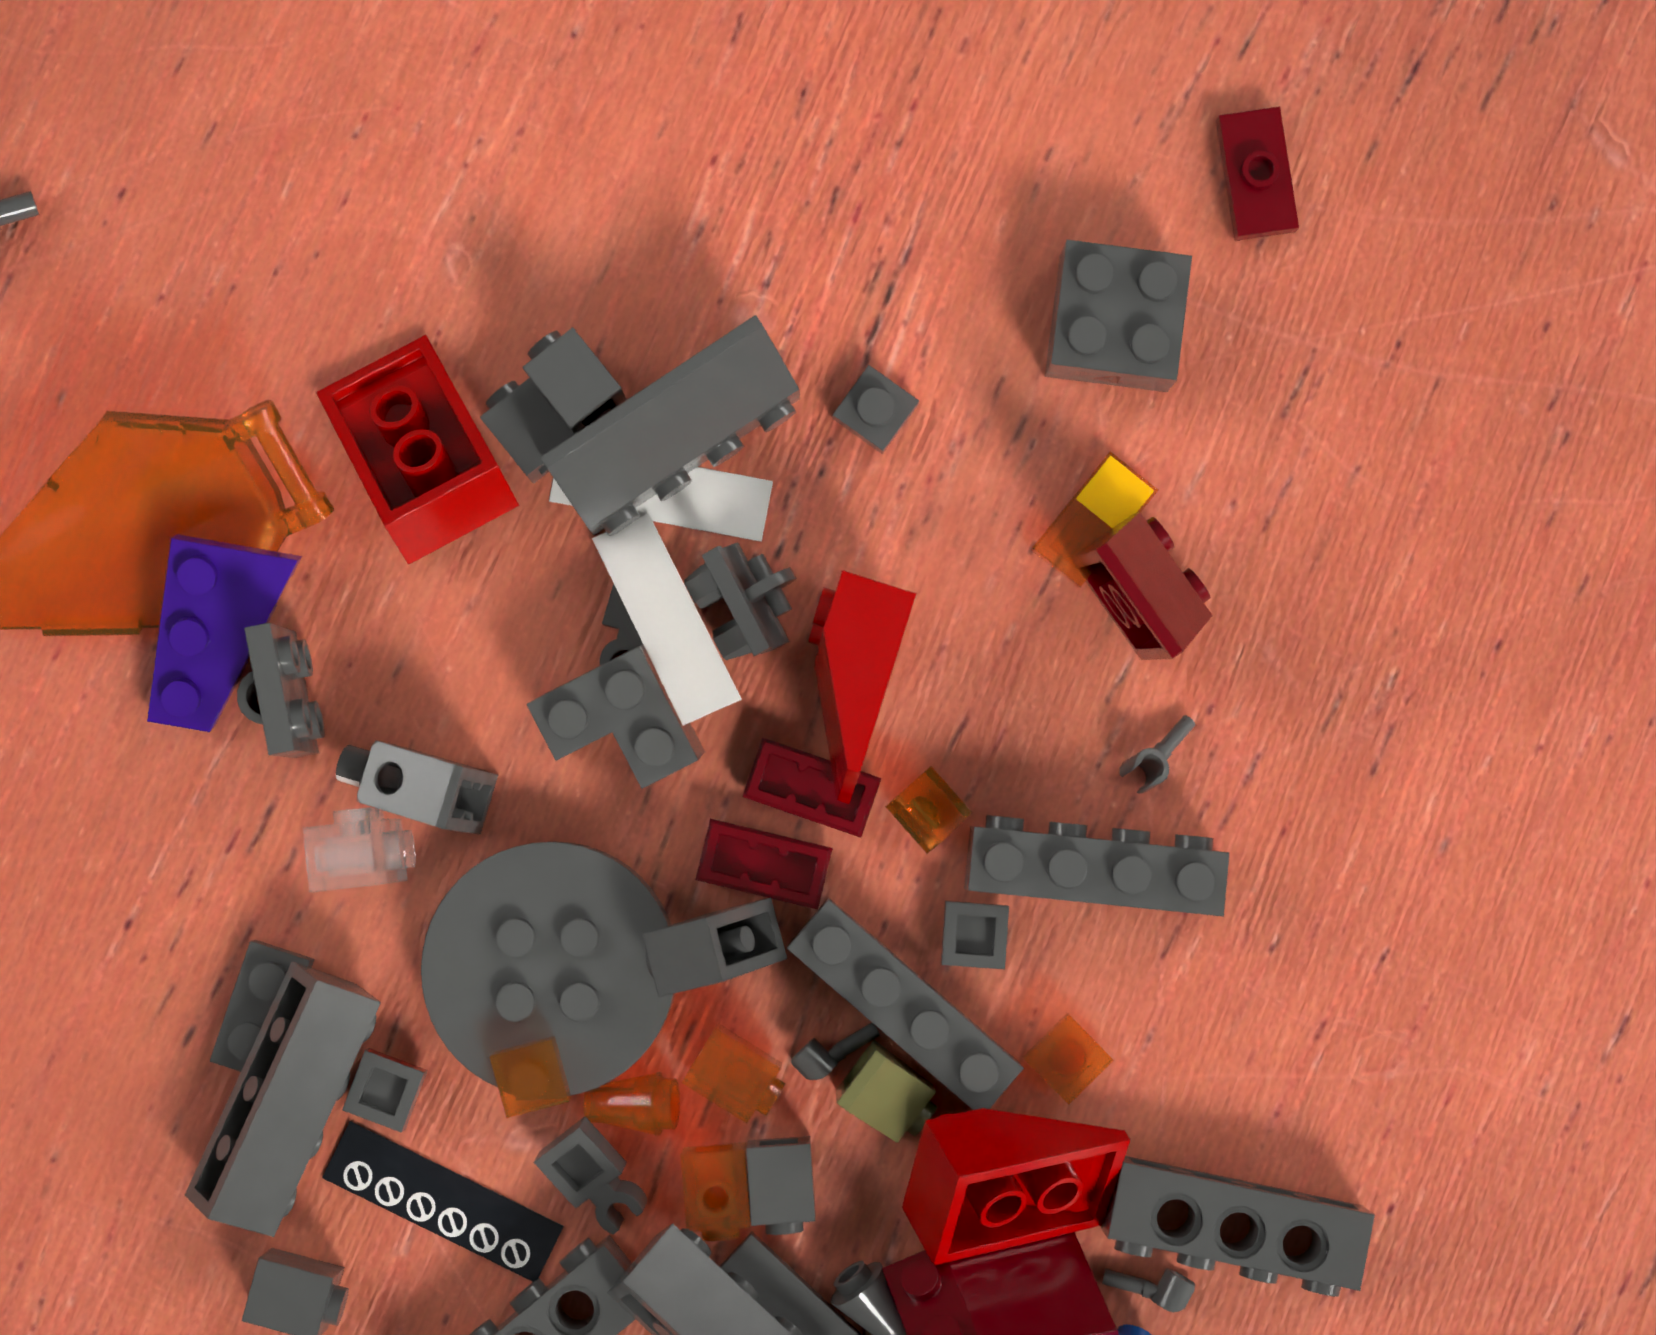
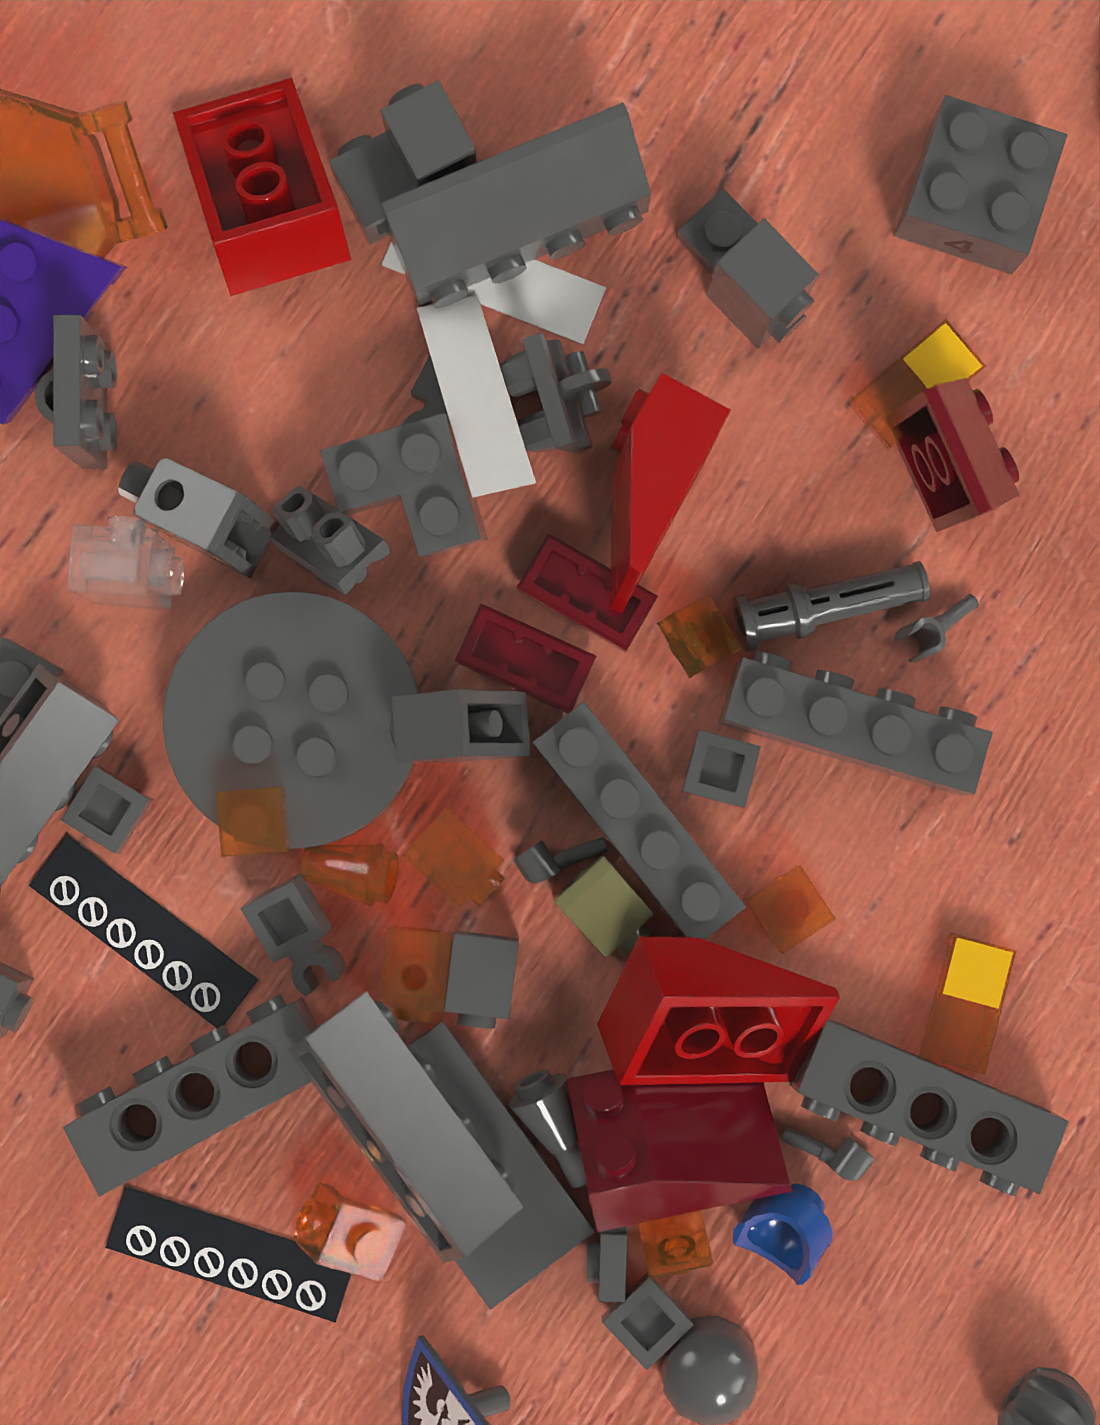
camera: 10 degrees right, 0 degrees up
(548, 789) = (325, 540): none -> dark grey hips
(926, 459) = (763, 285): none -> dark grey brick
(1022, 764) = (801, 609): none -> dark grey pin
(1258, 1116) = (967, 1003): none -> clear orange tile

